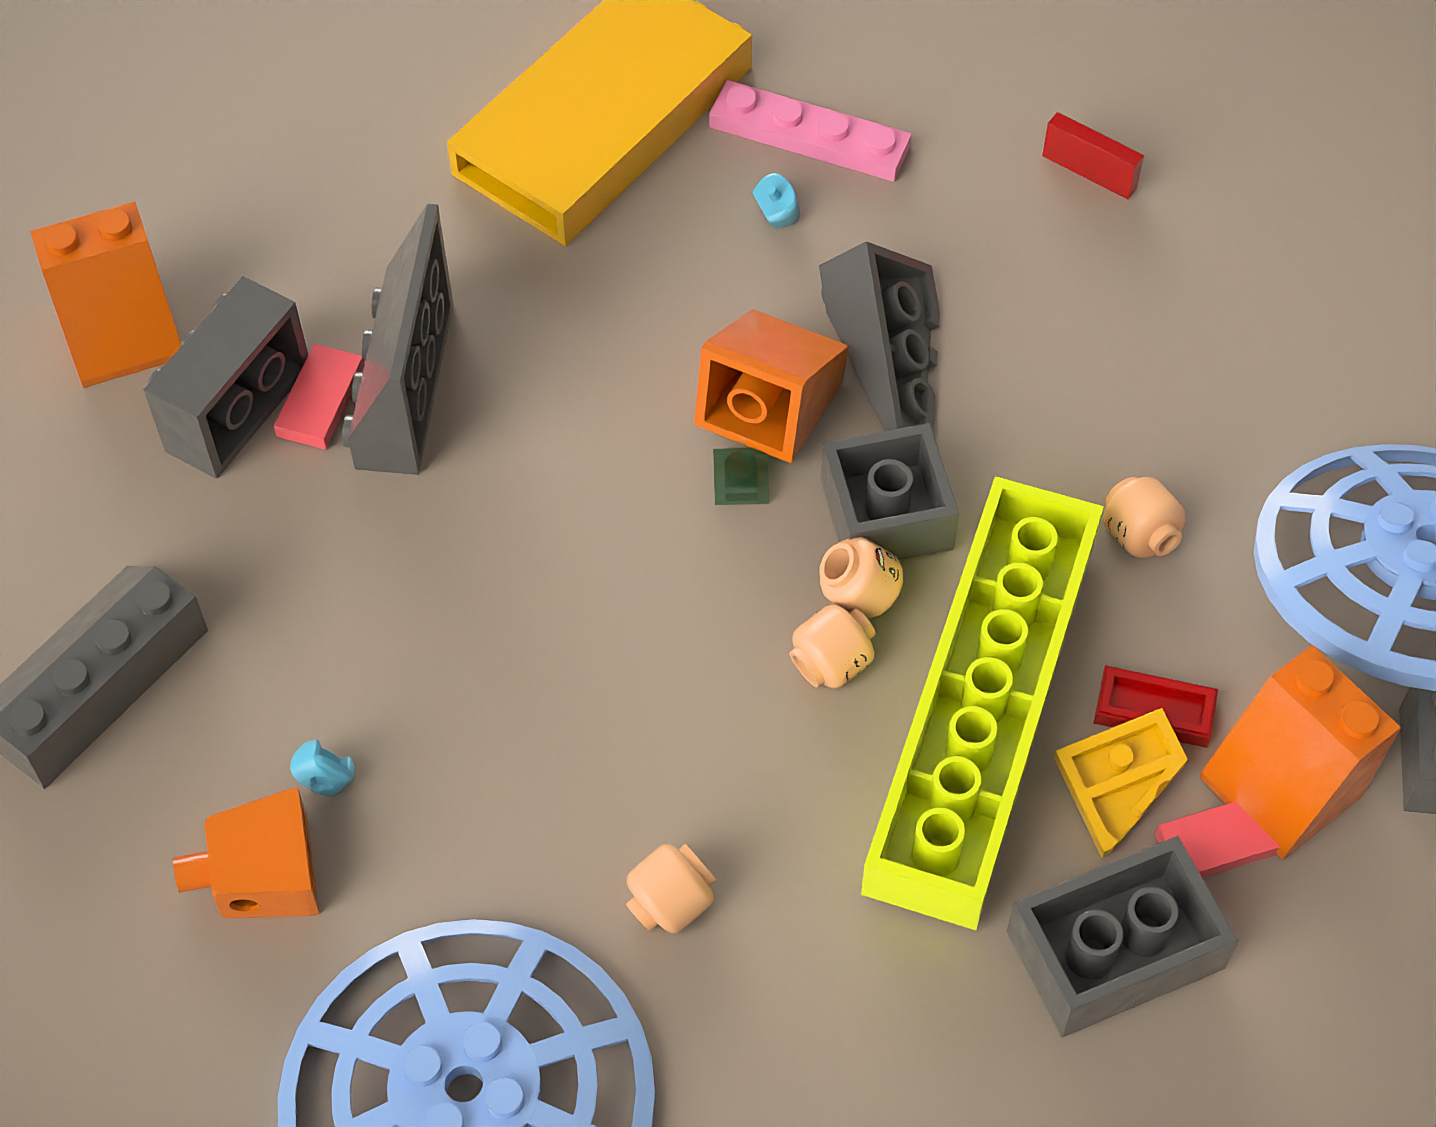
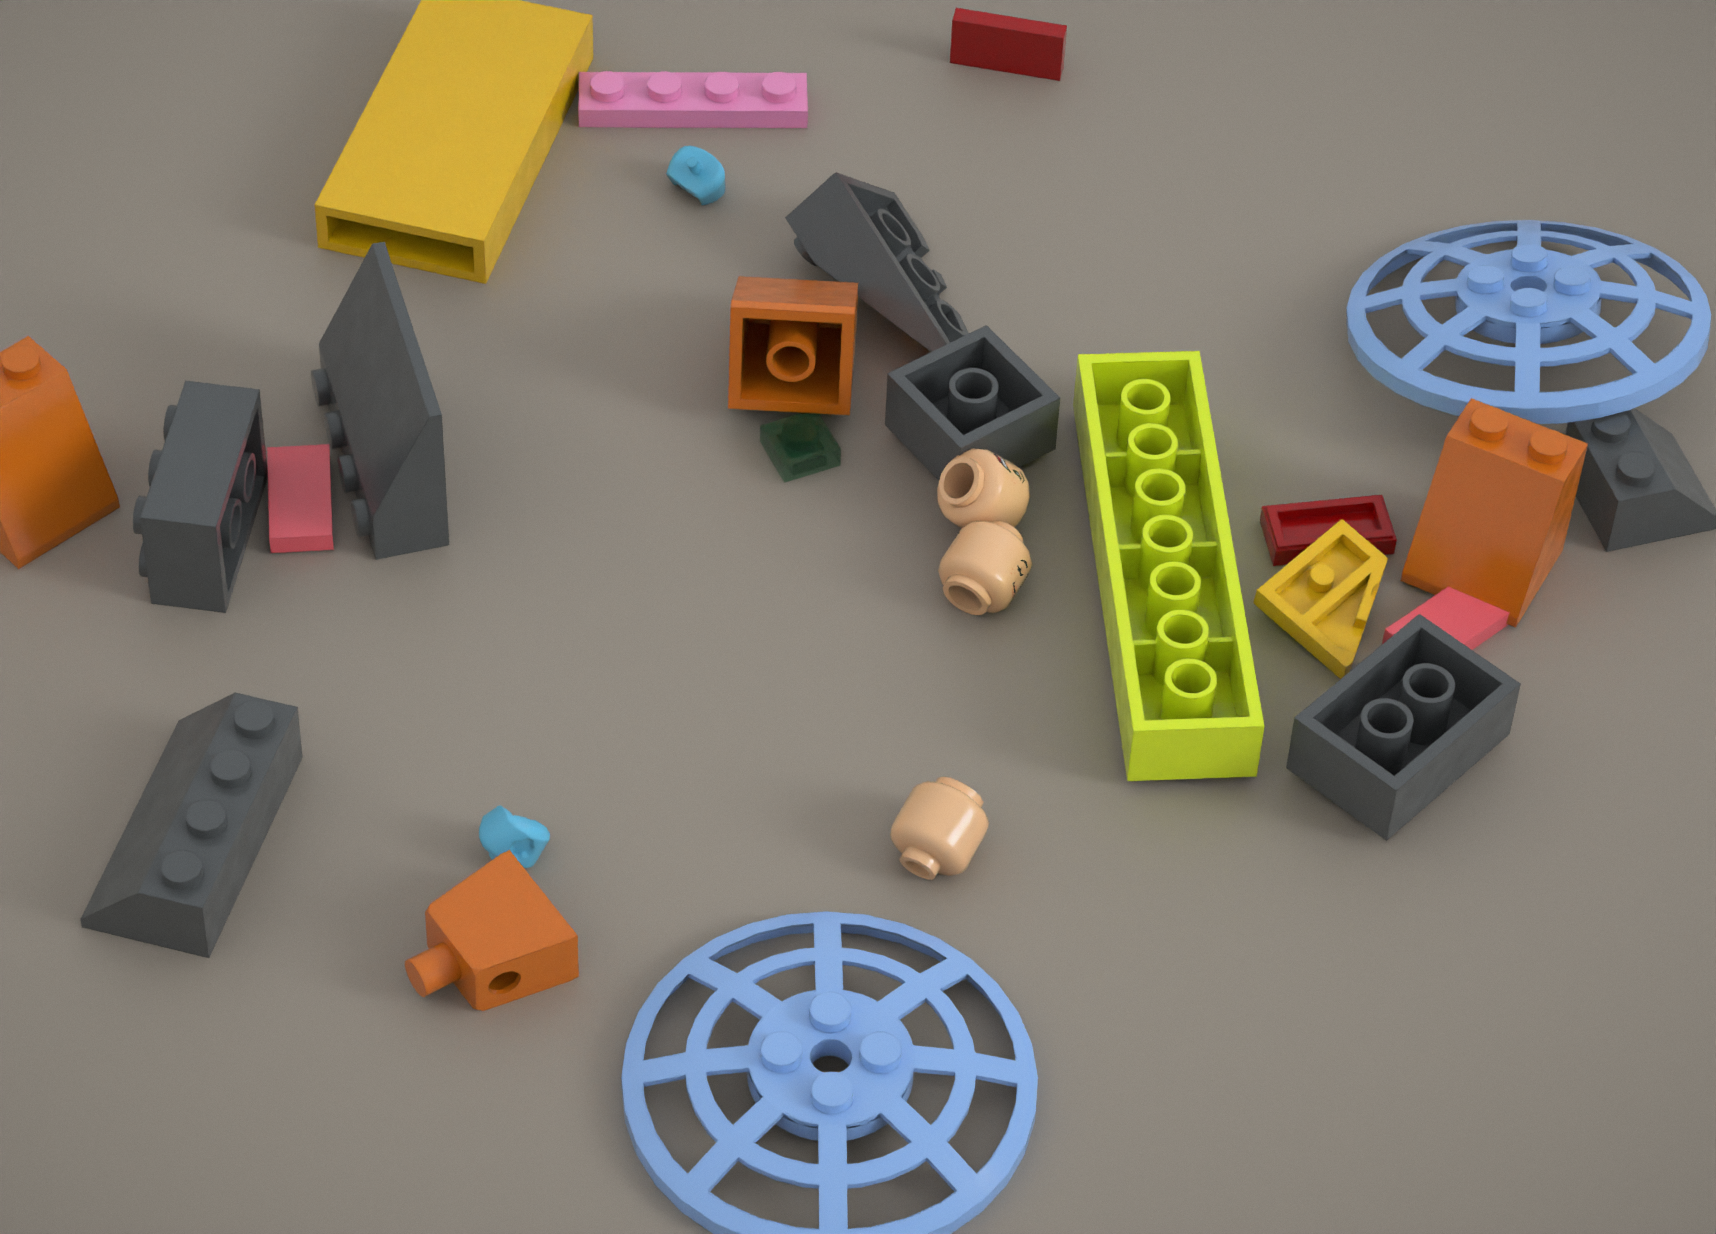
camera: 25 degrees left, 10 degrees down
(1144, 517) = (1236, 361): light nougat head -> none

